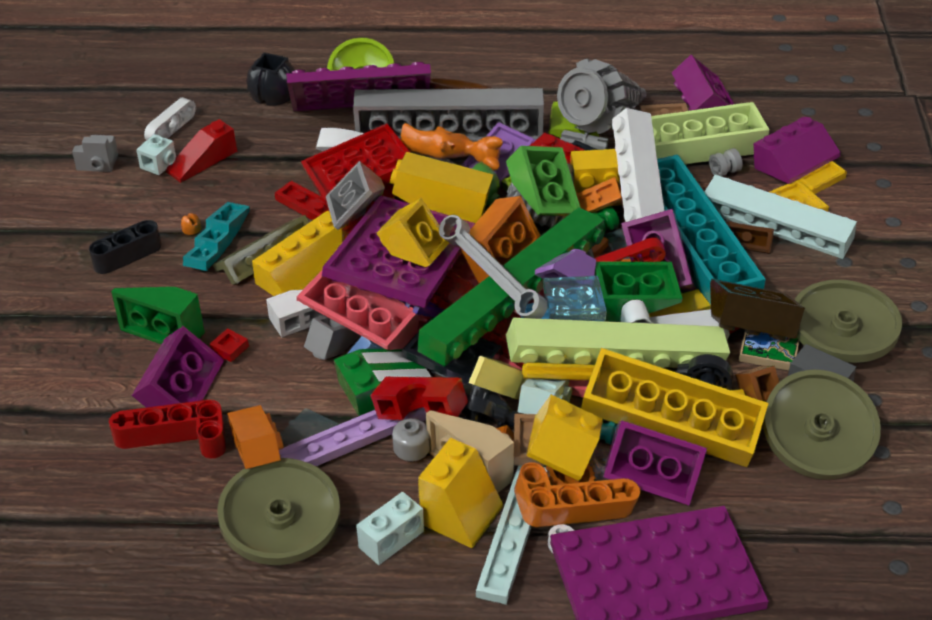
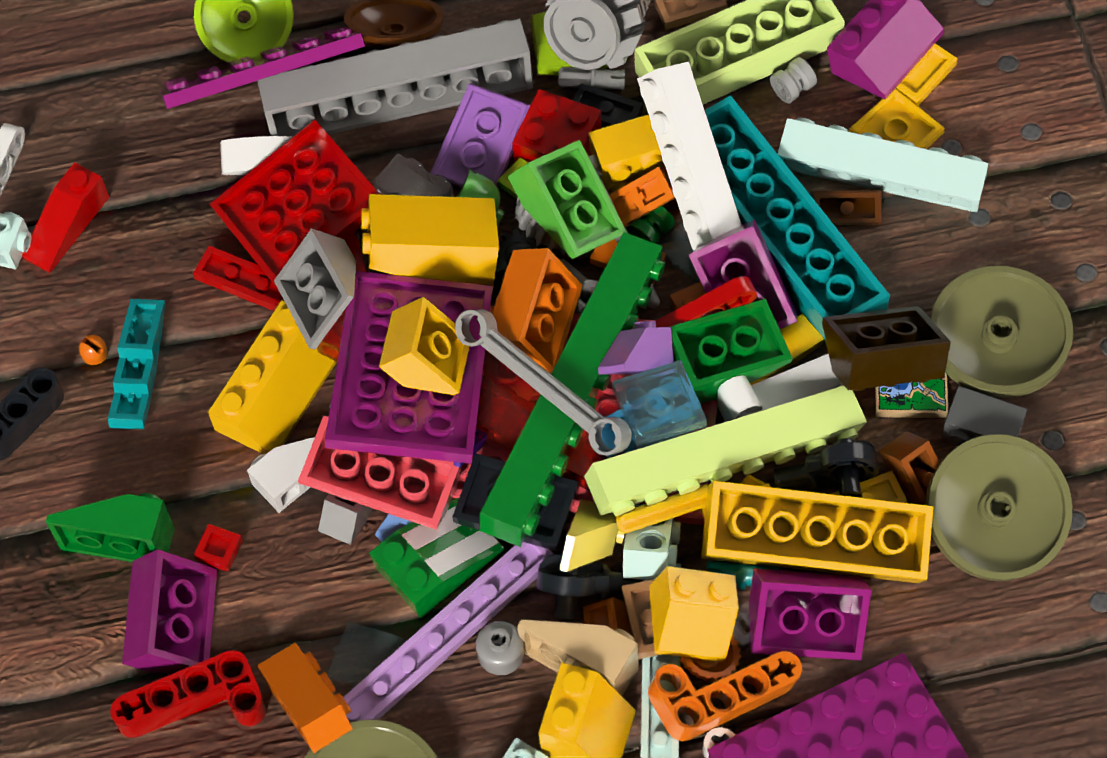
camera: 10 degrees left, 20 degrees up
(239, 264) = (206, 374): olive fence -> none
(268, 79) = (120, 75): black piece -> none
(401, 395) = (472, 592): red arch -> none
(445, 144) = (415, 143): orange animal -> none

